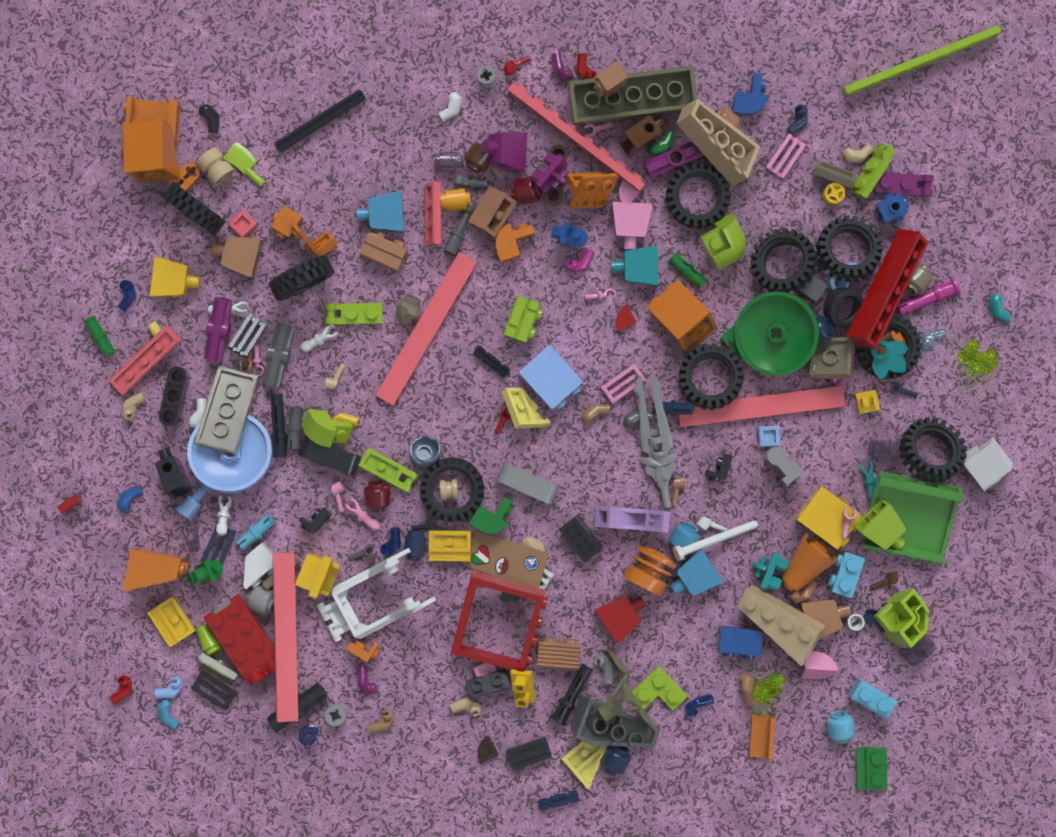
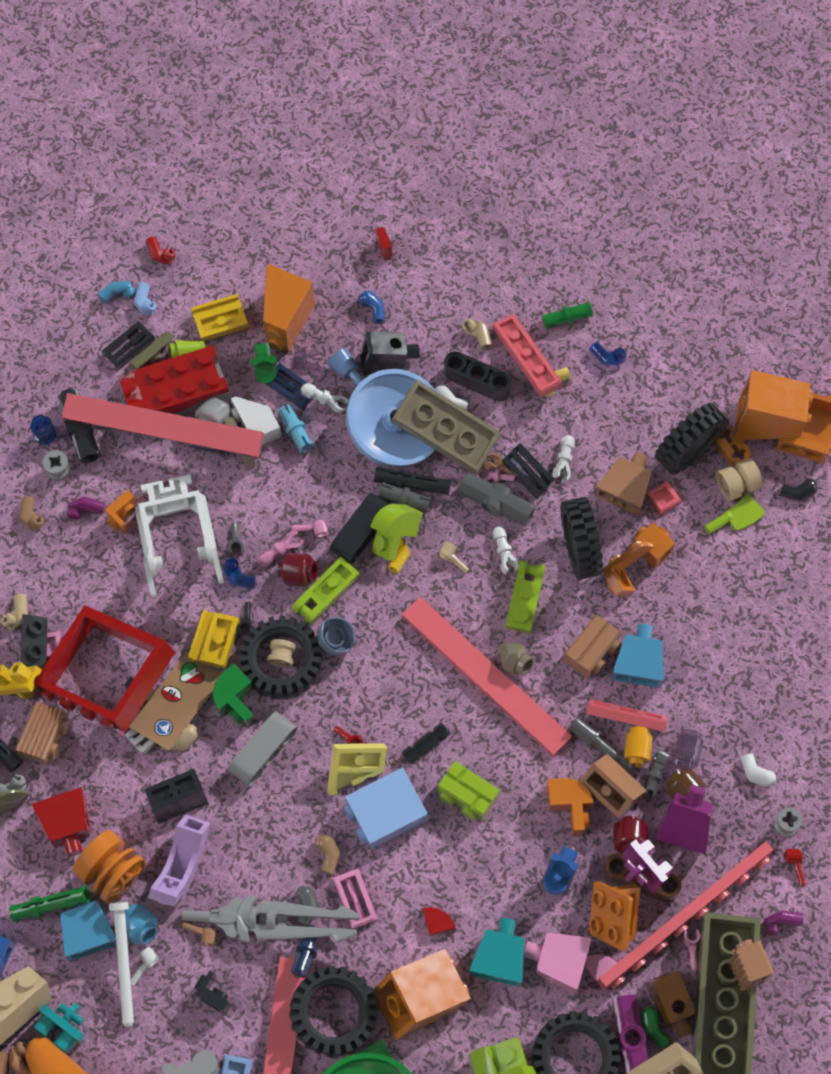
camera: 110 degrees right, 20 degrees down
(171, 279) = (616, 403): yellow torso -> none
(218, 329) = (543, 438): magenta piece -> none
(318, 574) = (224, 480): yellow plate -> none
(319, 519) = (290, 500): black bracket -> none
(320, 120) = (771, 612): black axle -> none
(416, 543) = (226, 598): dark blue brick -> none
(582, 68) = (776, 948): red arm -> none
(582, 263) = (521, 883): dark pink arm -> none
(600, 295) = (475, 897): bright pink hand -> none
(686, 607) = (39, 906): none -> green pin
(687, 270) = (480, 1018): green pin -> none

